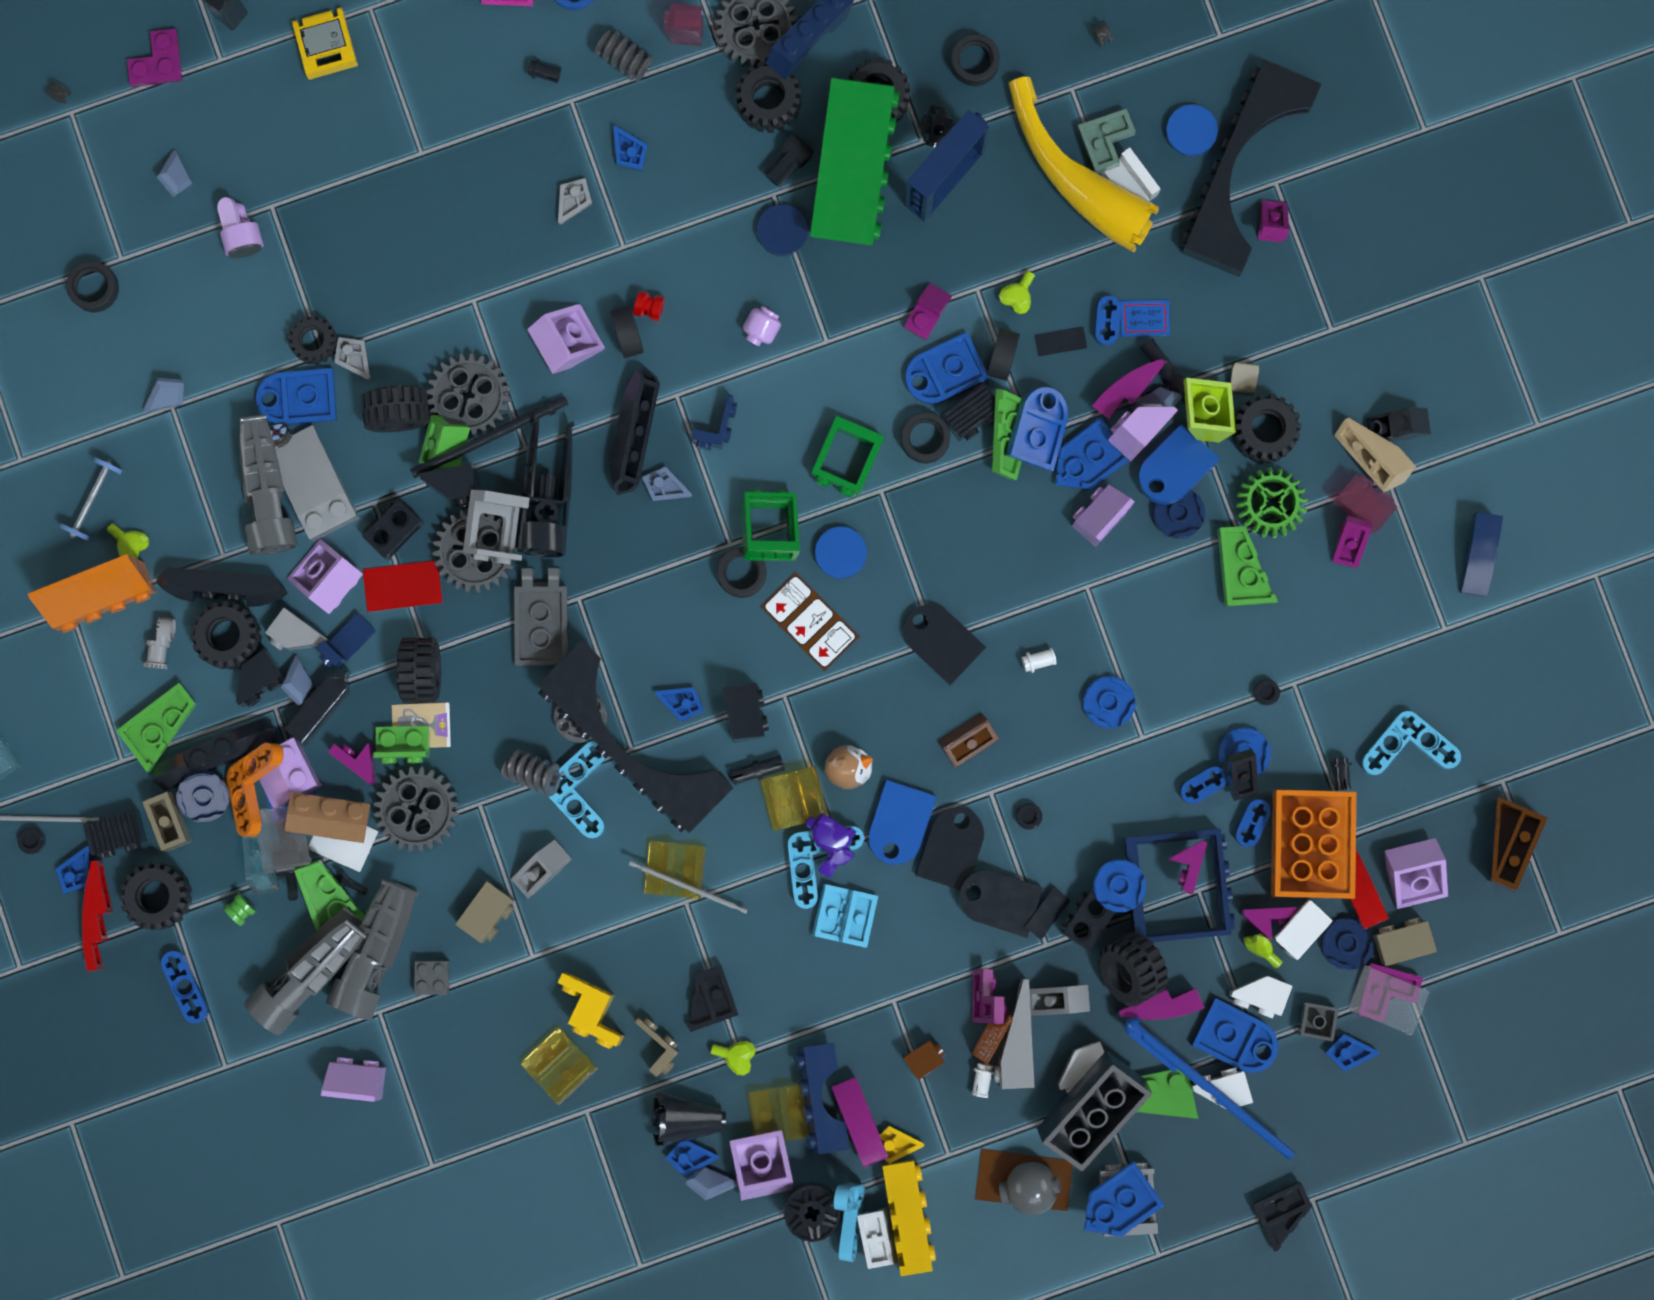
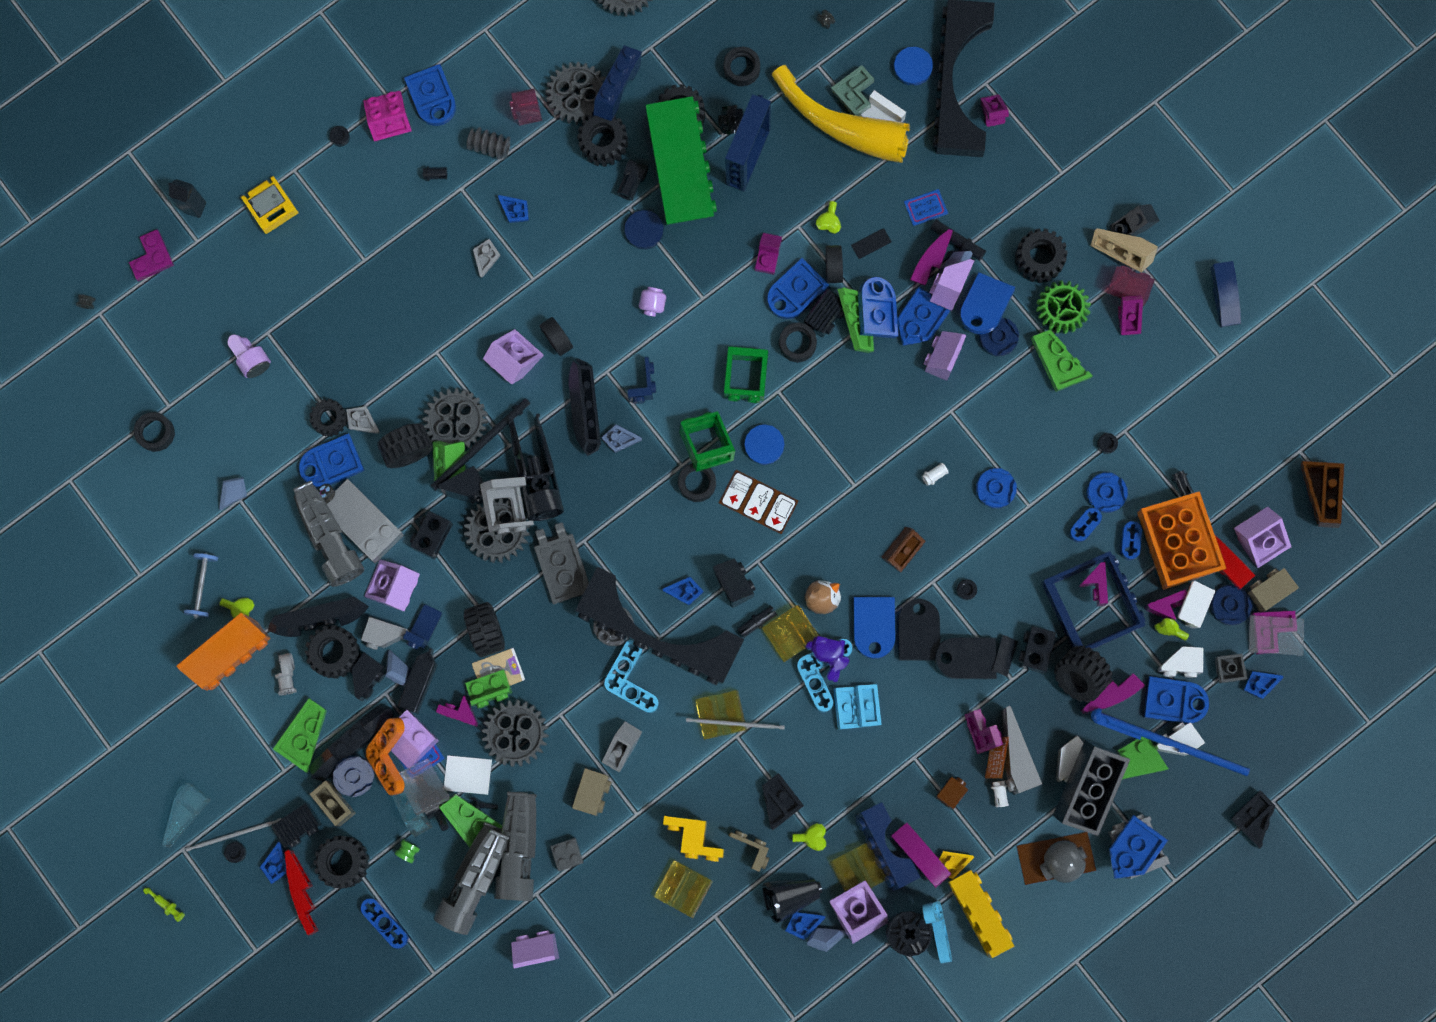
camera: 15 degrees left, 5 degrees down
(174, 175) = (189, 333): sand blue piece -> none
(327, 817) = (451, 760): medium nougat brick -> none
(402, 586) = (451, 574): red sticker -> none
(532, 772) = (592, 677): flat silver piece -> none
(649, 306) = (566, 313): red wheel -> none
(877, 1238) = (963, 937): white hinge -> none
(944, 642) = (861, 484): black tile -> none
(1059, 1000) = (1037, 715): light grey slope -> none
(1101, 320) = (895, 219): blue beam -> none
(1119, 885) = (1051, 616): blue tile -> none
(1209, 409) = (996, 254): lime slope -> none
(1241, 774) = (1111, 506): black slope -> none
(1244, 377) = (1011, 226): dark tan slope -> none
(1403, 736) = (1217, 443): medium azure beam -> none

